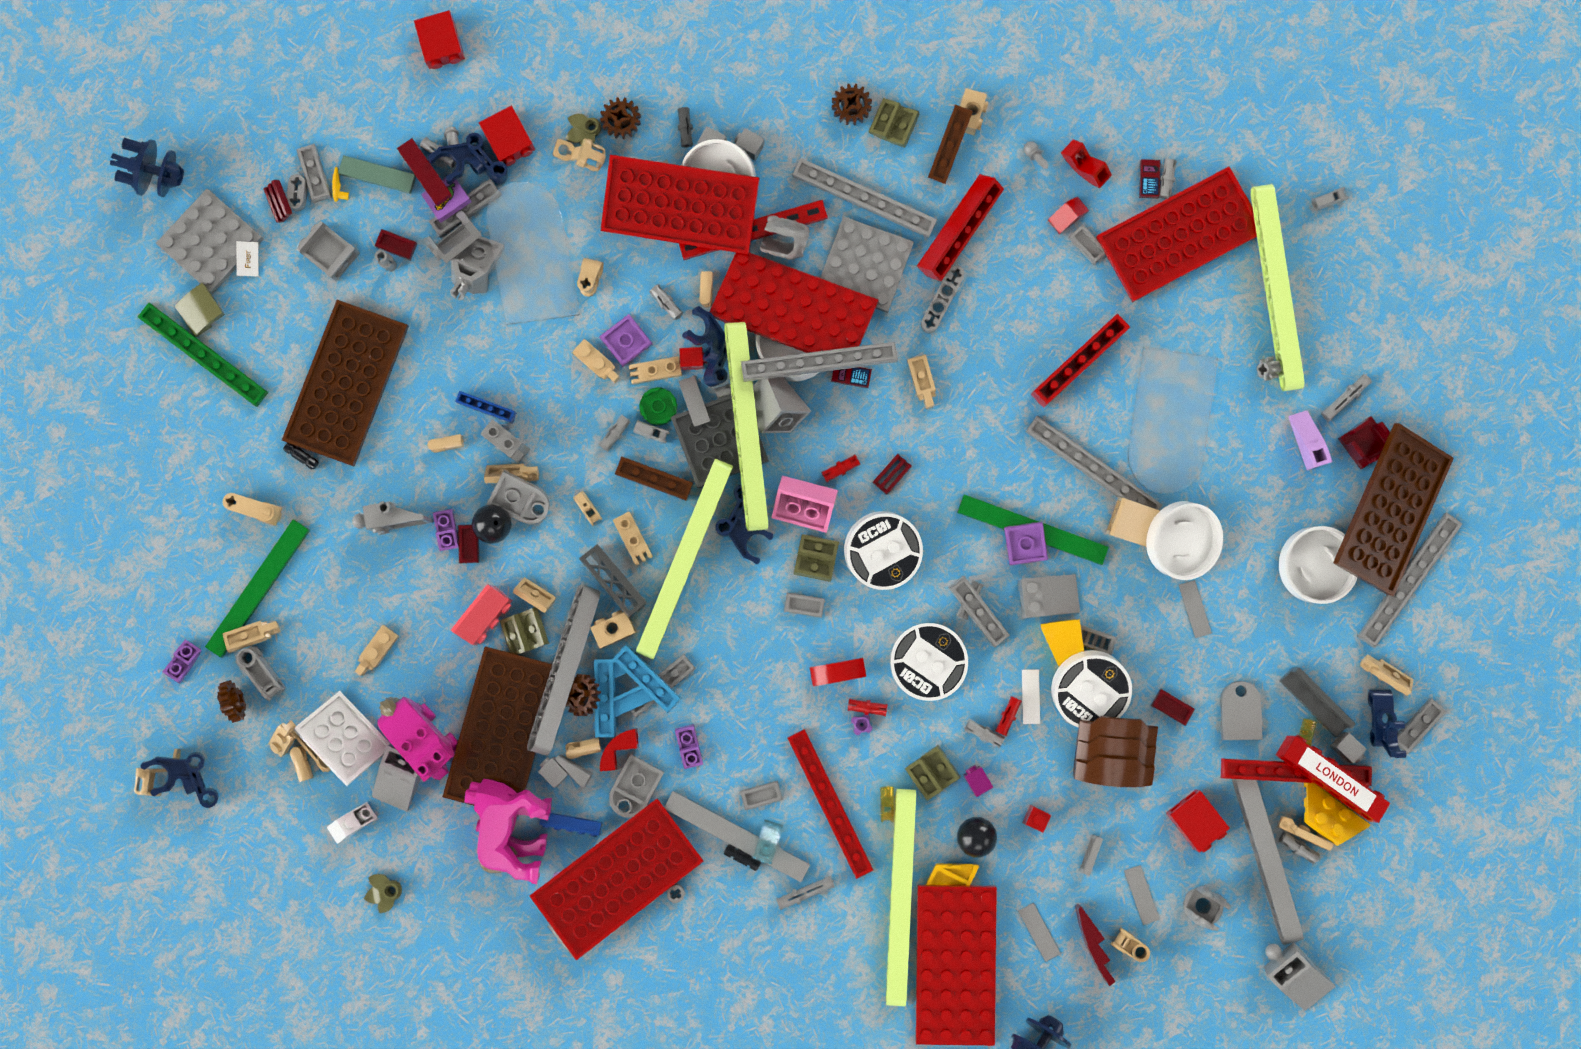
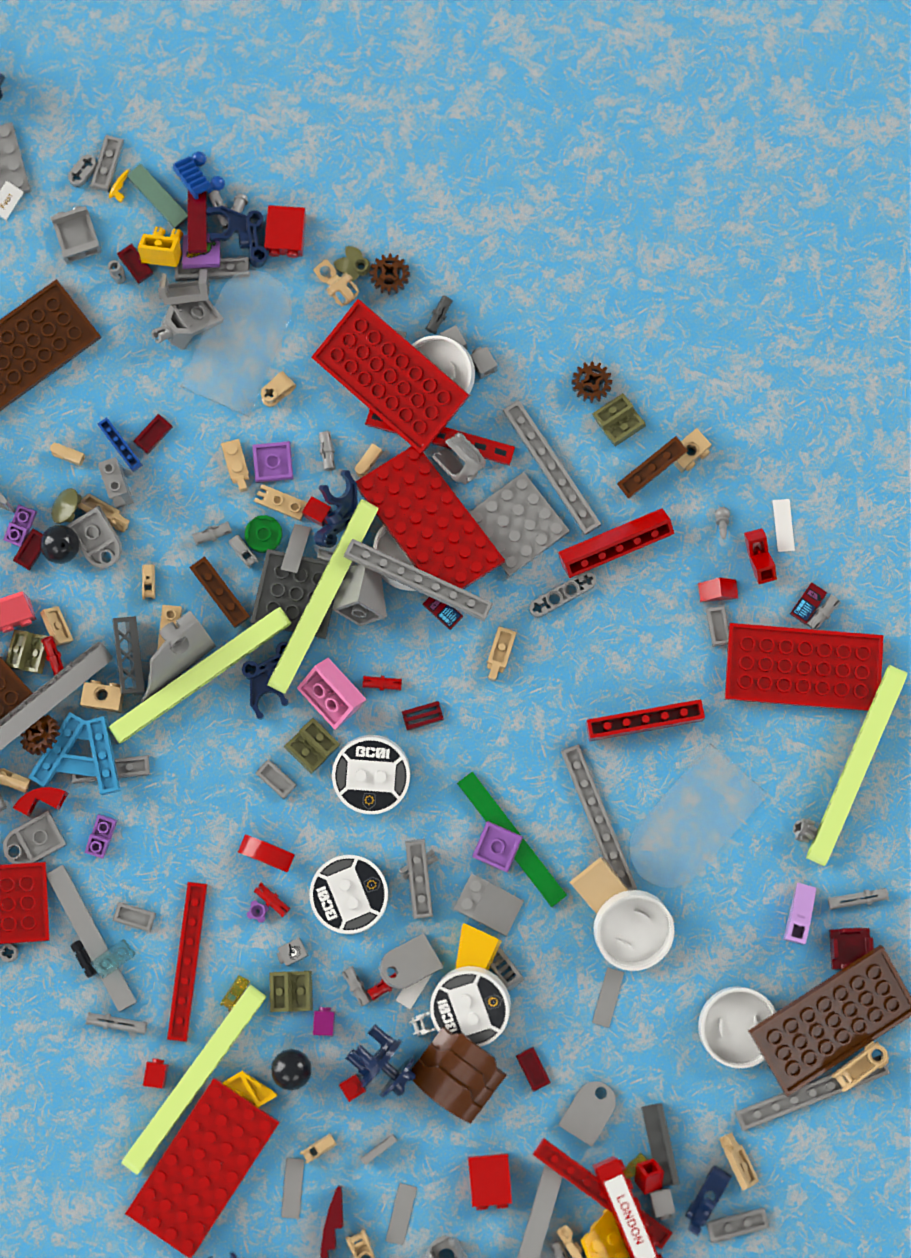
camera: 30 degrees right, 5 degrees down
(277, 201) = (62, 168): dark red tile -> none
(391, 137) = (193, 179): none -> blue gear
(410, 218) = (161, 249): none -> yellow brick
(439, 40) = (281, 117): red brick -> none
(474, 488) = (65, 506): none -> olive dish
(507, 380) = (152, 434): none -> dark red tile
(547, 621) = (53, 654): none -> red pin
(656, 540) = (178, 652): none -> light grey panel
(866, 913) = (155, 1074): none -> red brick
(913, 740) = (292, 952): none -> light grey brick
(1017, 684) = (411, 963): none -> light grey tile
(1042, 882) = (321, 1147): none -> tan bar
(1048, 784) = (371, 1065): none -> dark blue piece
(1065, 733) = (425, 1030): none -> white piece
(1086, 126) = (783, 525): none -> white sticker
(1325, 733) = (649, 1176): none -> red brick
(1438, 533) = (861, 1066): none -> tan piece

